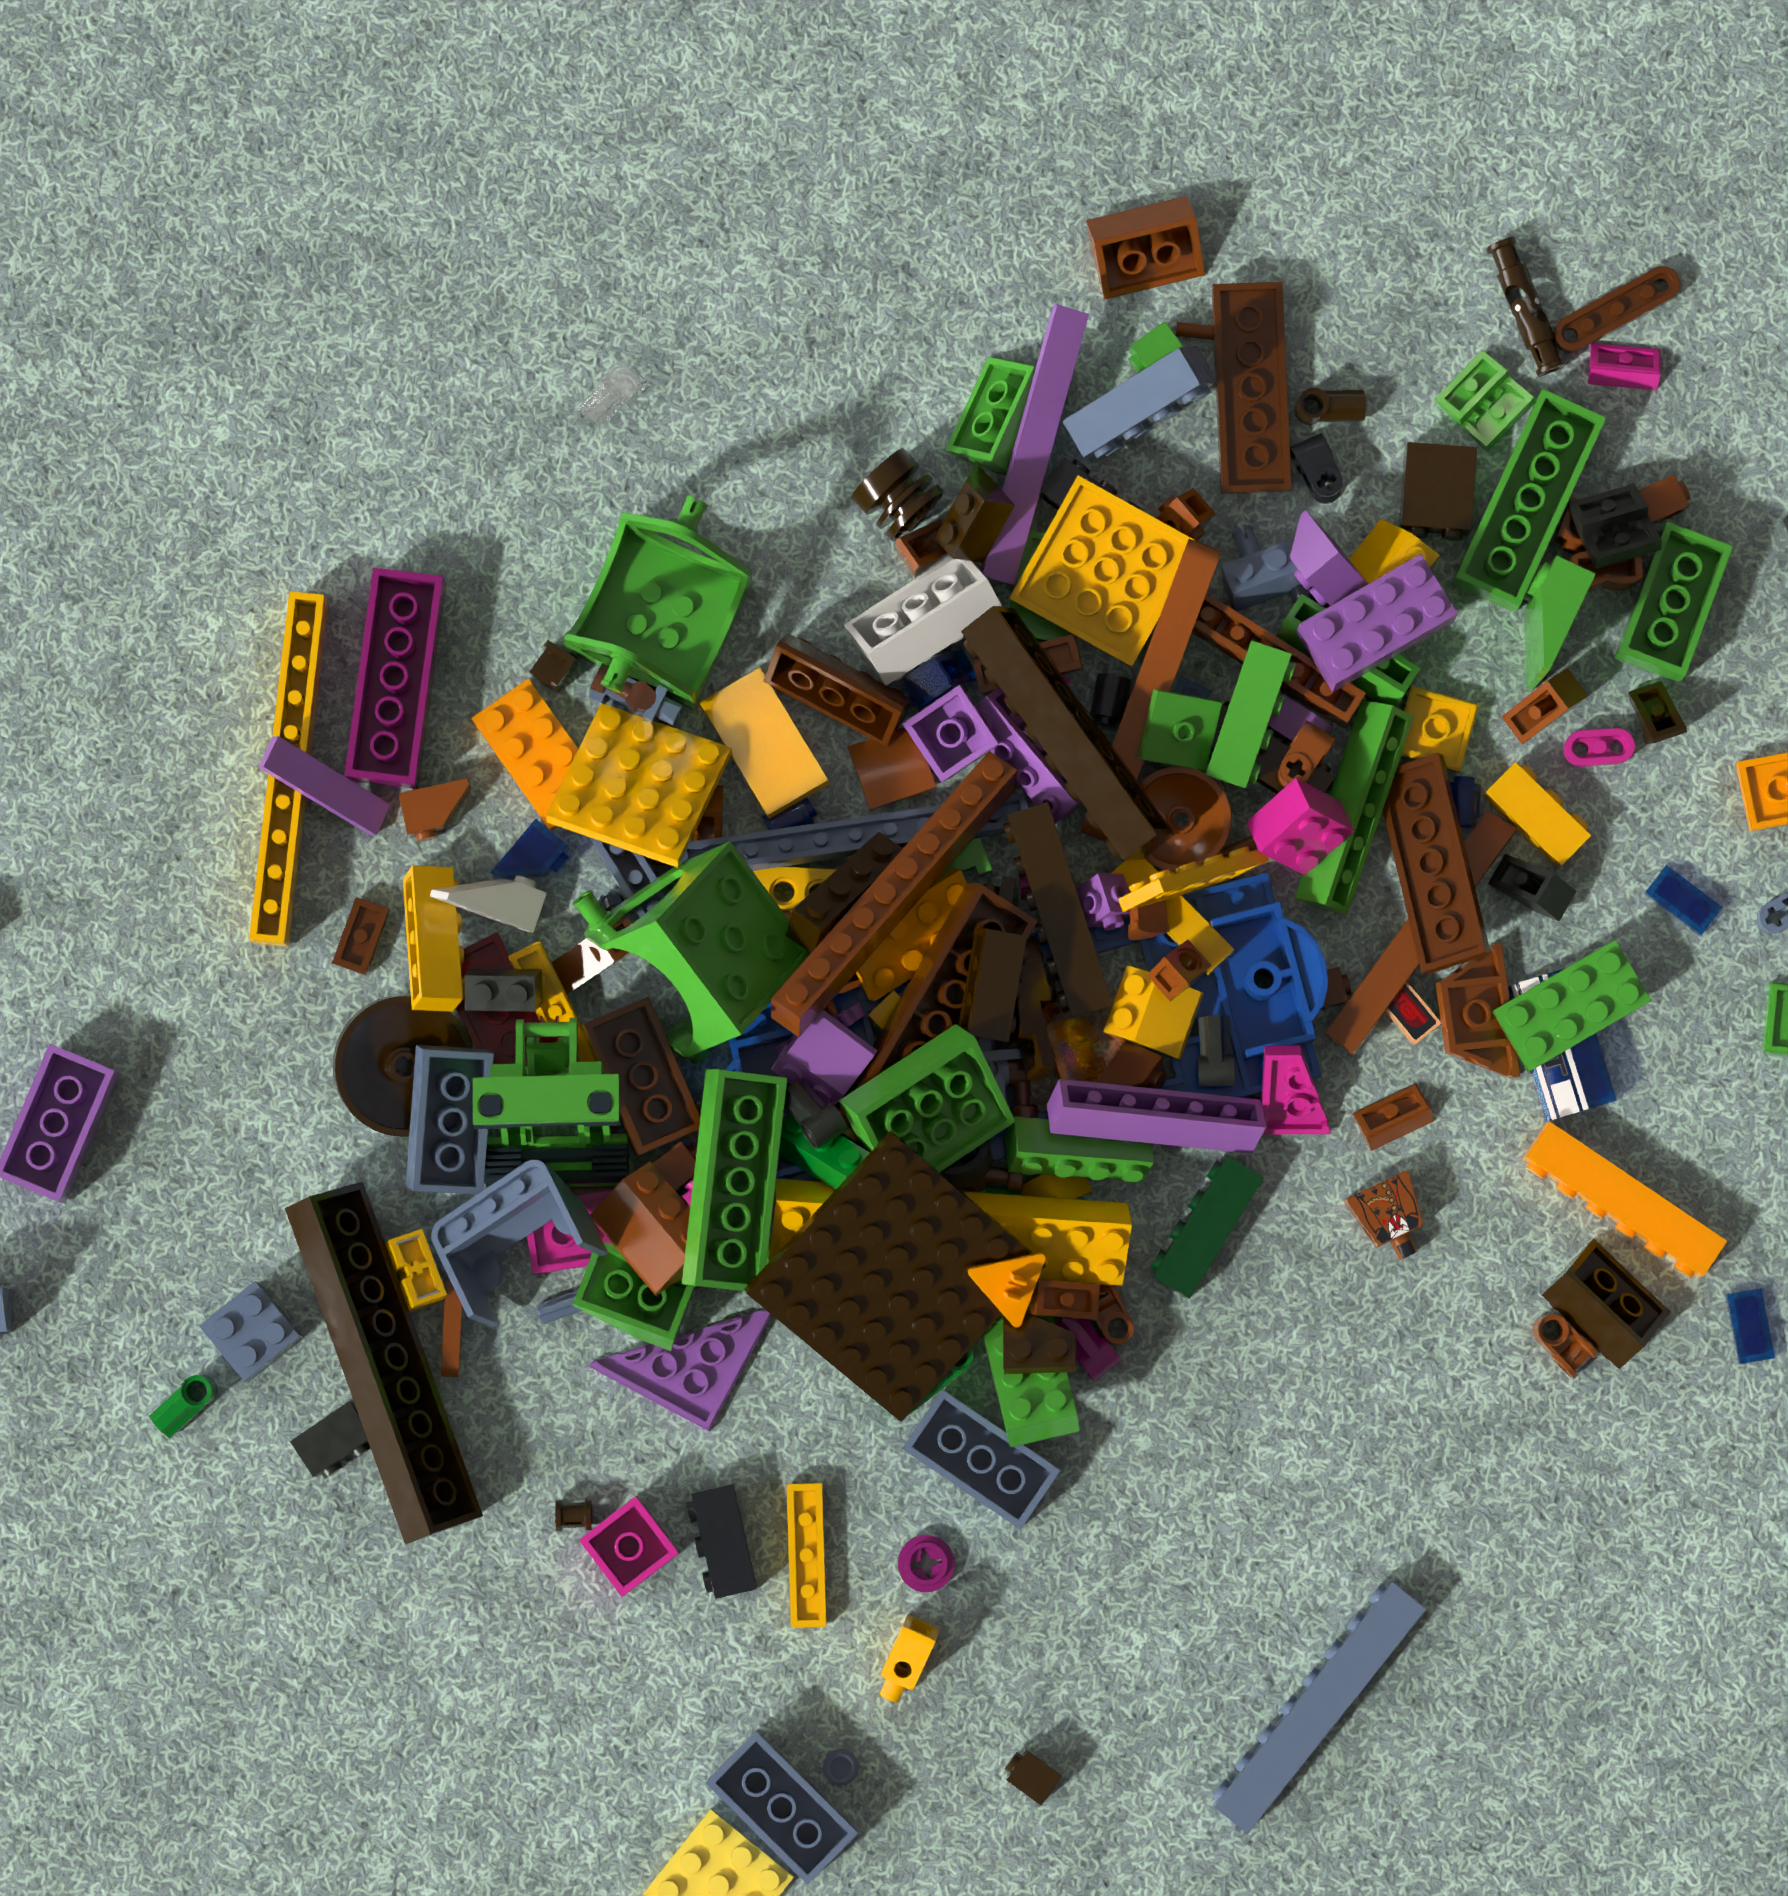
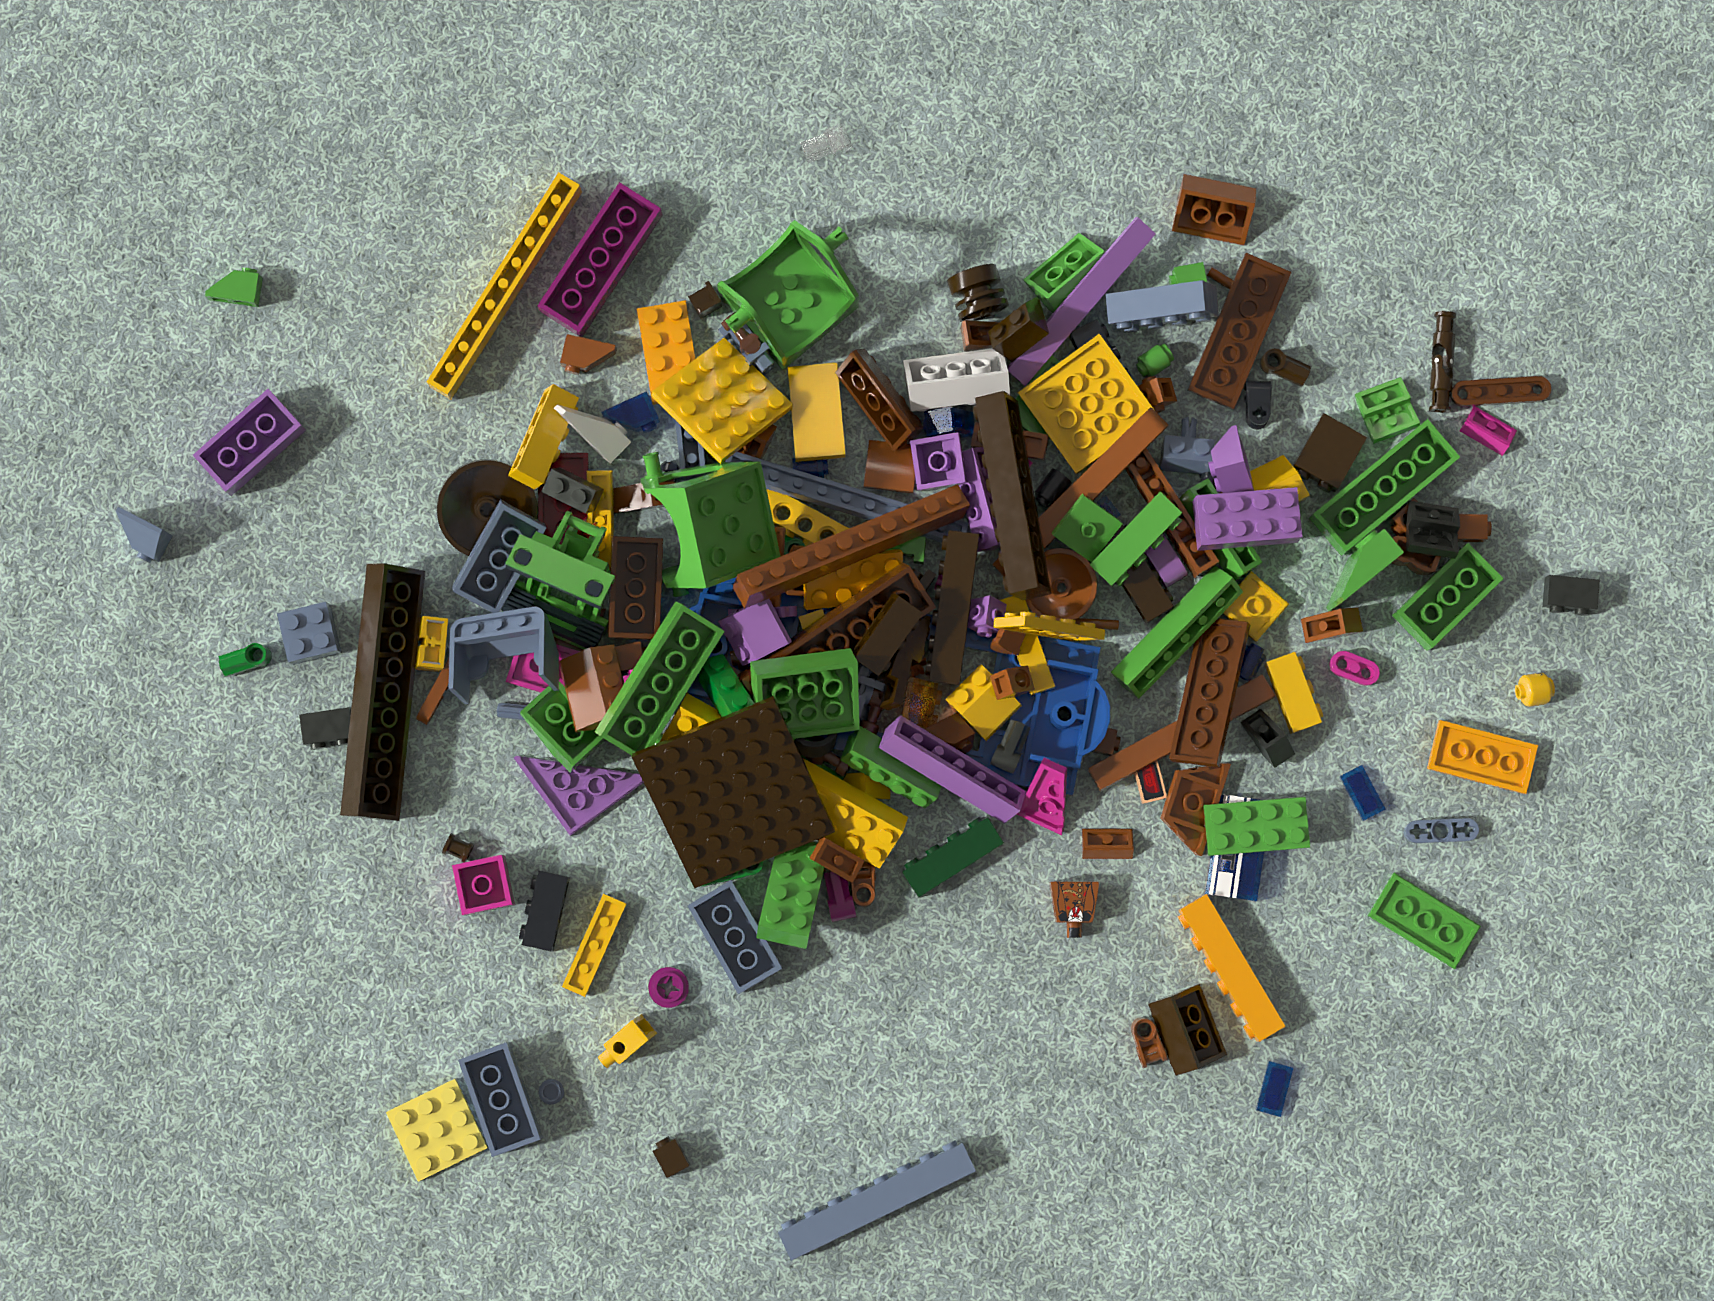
camera: 25 degrees right, 0 degrees up
(324, 785) = (521, 306): medium lavender tile -> none
(360, 936) = (500, 414): reddish brown plate -> none
(816, 1119) = (730, 666): pearl dark grey piece -> none
(839, 892) = (811, 529): dark brown brick -> none
(1010, 1284) = (805, 832): light orange piece -> none
(1037, 1347) = (803, 879): dark brown wing -> none
(1162, 475) = (1154, 360): none -> bright green brick
(1300, 826) = (1135, 627): dark pink brick -> none
(1307, 752) = (1163, 581): dark orange piece -> none
(1656, 713) = (1402, 663): dark brown slope -> none

